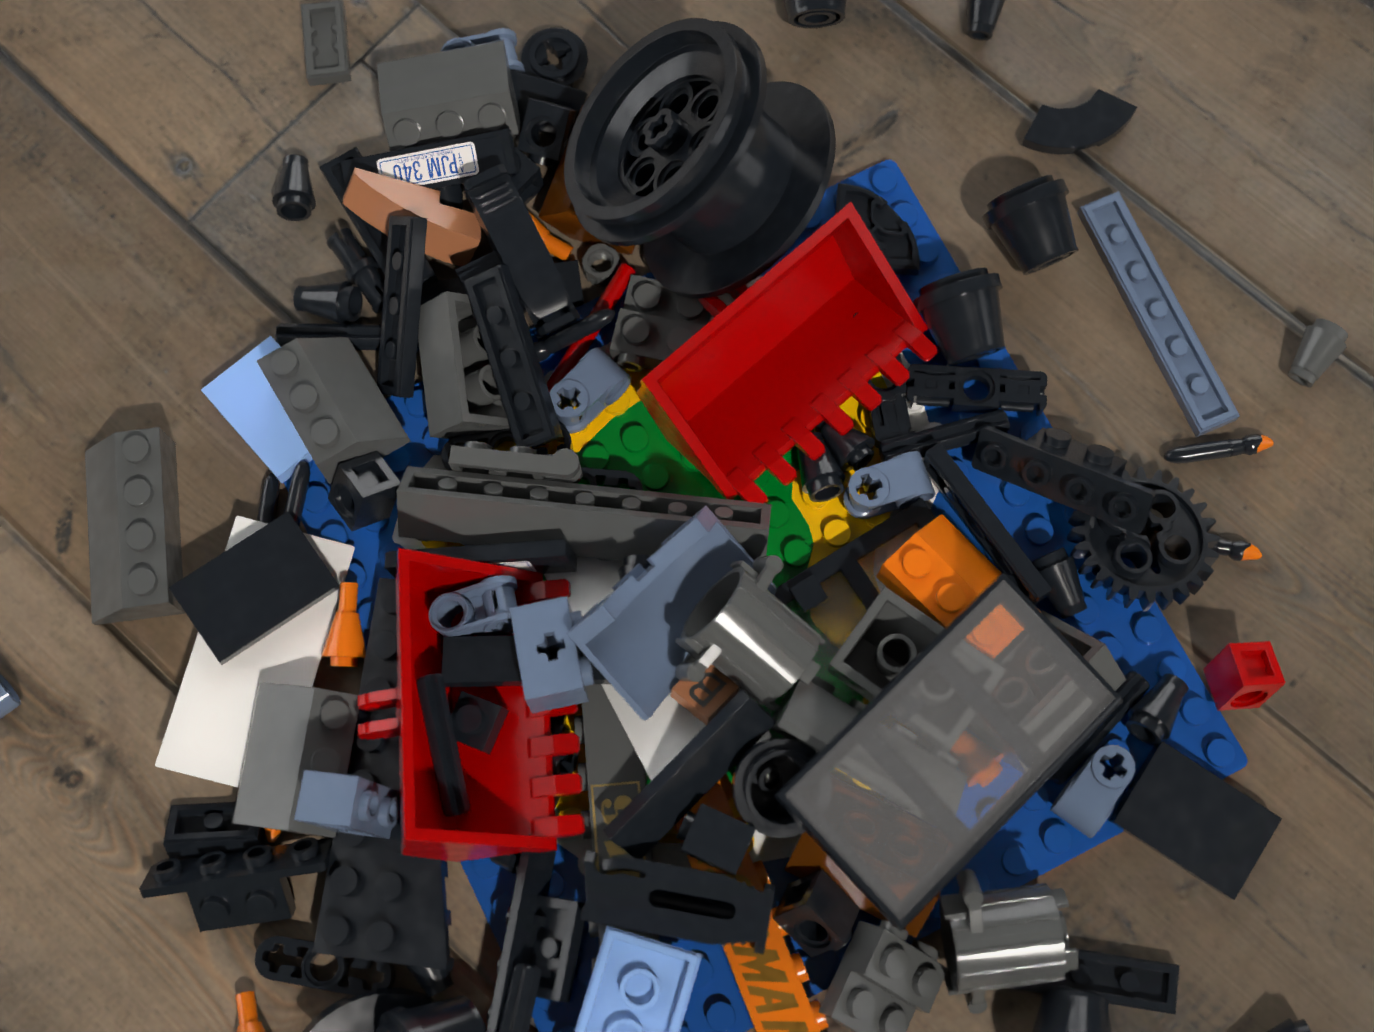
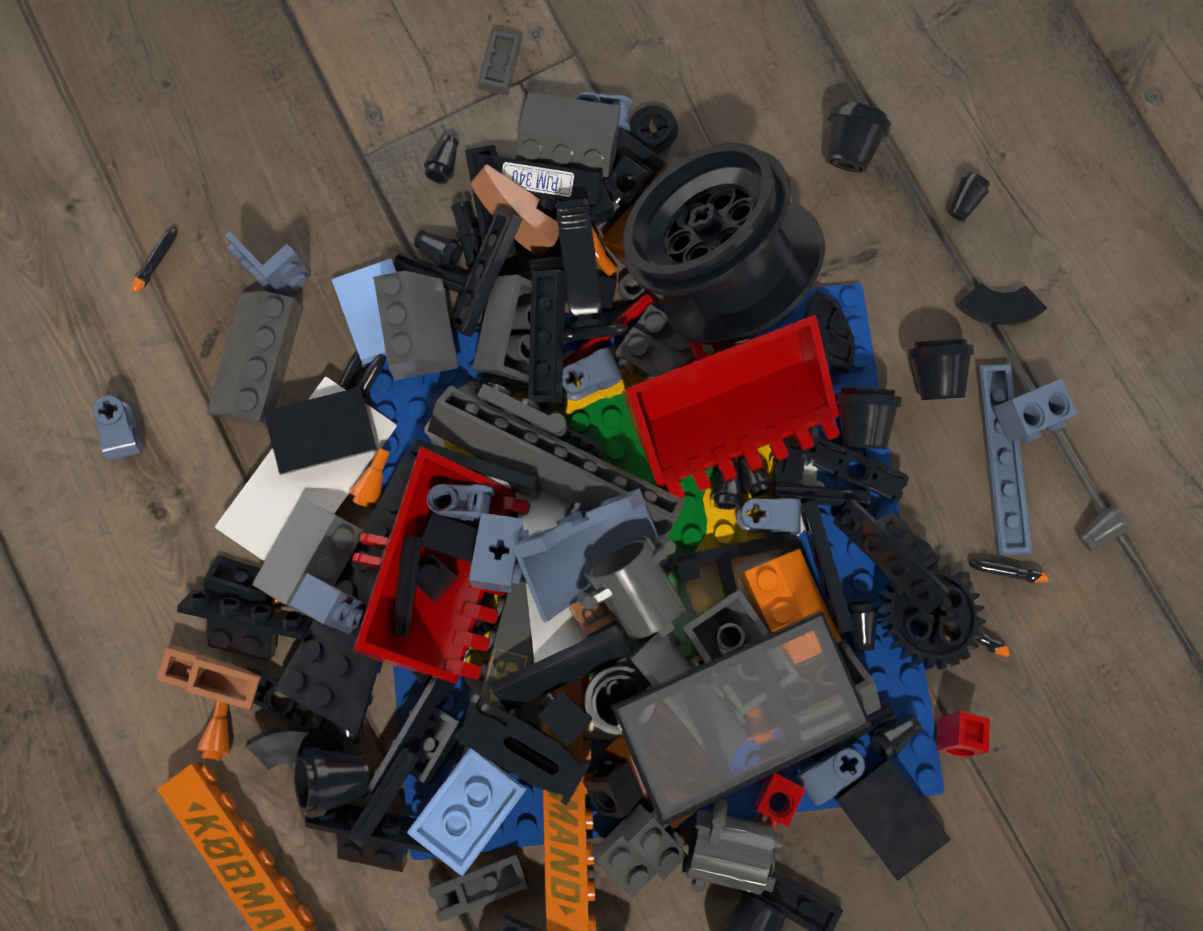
camera: 15 degrees right, 5 degrees up
(129, 403) = (281, 273): none -> sand blue bracket
(216, 970) = (208, 677): none -> nougat slope
(364, 490) = (415, 391): black brick -> none
(1054, 833) = (792, 792): none -> red brick
(1172, 235) = (1035, 411): none -> sand blue brick

